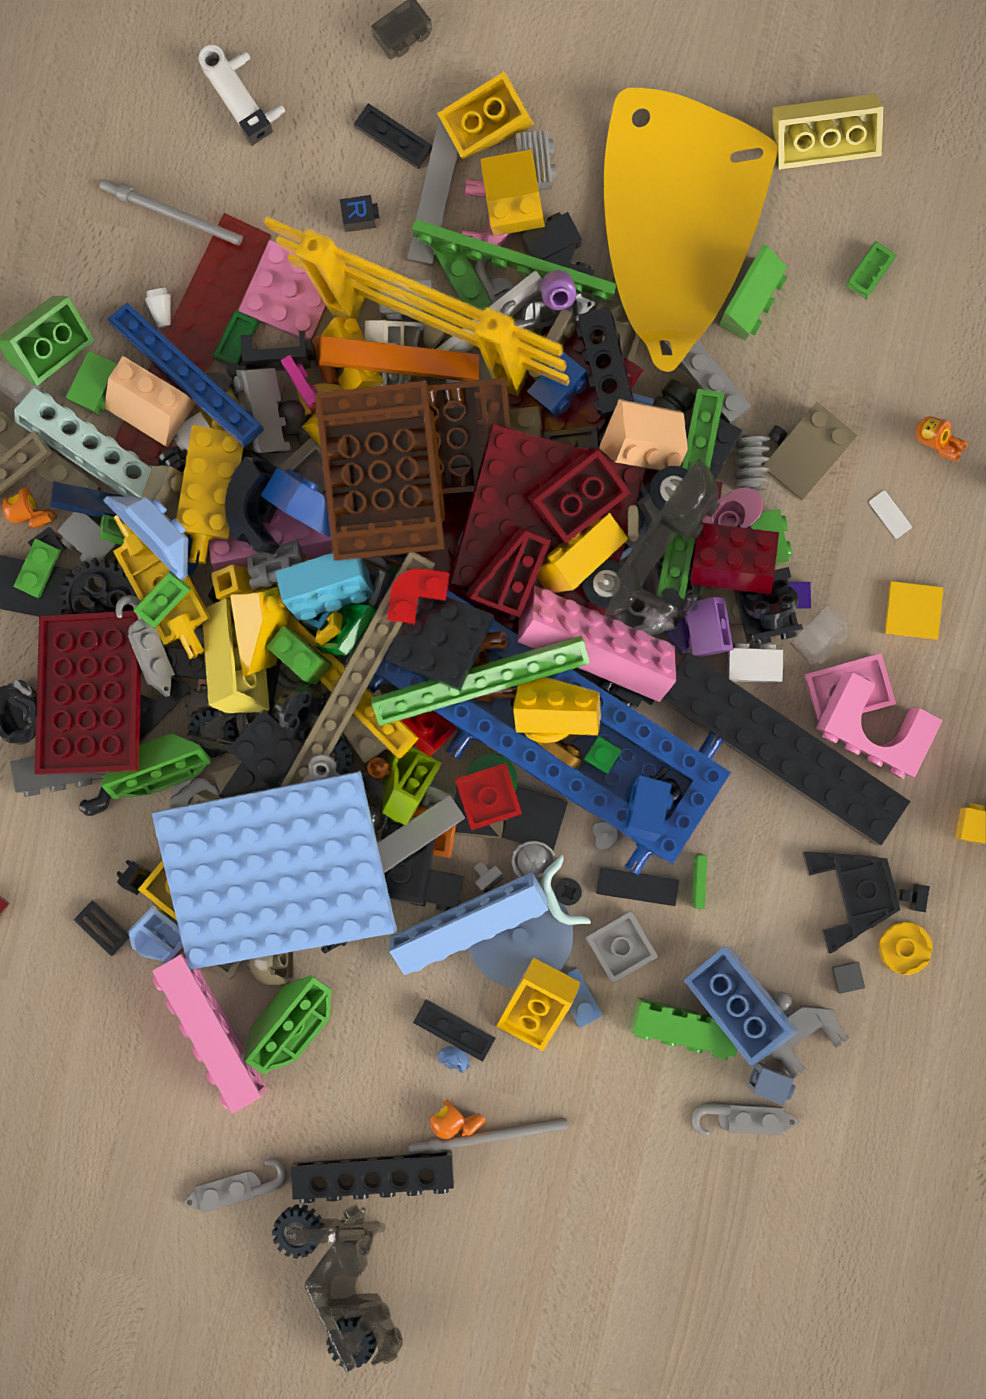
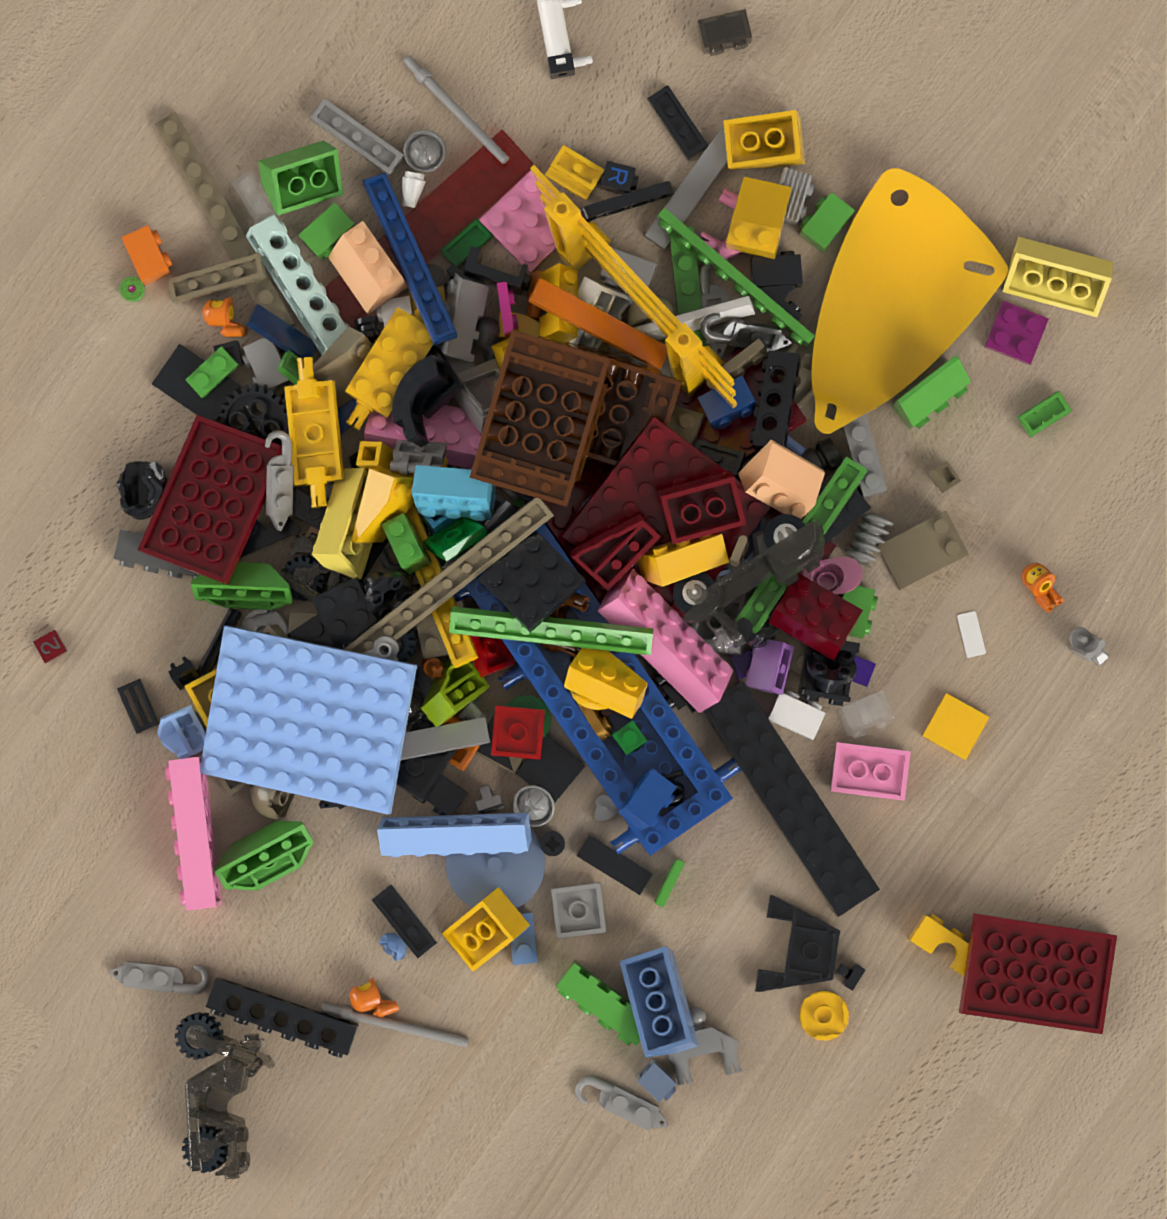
camera: 20 degrees right, 0 degrees up
(84, 279) = (357, 137): none -> light grey plate
(95, 805) = (178, 598): black arm -> none
(153, 852) = (212, 654): none -> black axle
(155, 529) = (328, 384): light blue wedge -> none
(156, 265) = (424, 151): none -> light grey hat
(161, 599) = (309, 446): bright green plate -> none
(298, 499) = (460, 411): blue slope -> none
(315, 218) = (574, 173): none -> yellow plate
(331, 629) = (442, 533): yellow tile -> none
(381, 227) = (627, 201): none -> black beam
(410, 586) = (525, 526): red plate -> none
(551, 899) = (535, 844): light aqua animal -> none
(558, 290) = (761, 321): medium lavender head -> none
(579, 171) = (826, 221): none -> bright green brick
(777, 434) = (901, 524): black hand -> none
(799, 371) = (944, 477): none -> dark tan plate
(809, 203) = (1016, 332): none -> magenta plate
(843, 723) = (850, 796): bright pink arch -> none
(848, 977) = (763, 1019): dark grey tile -> none

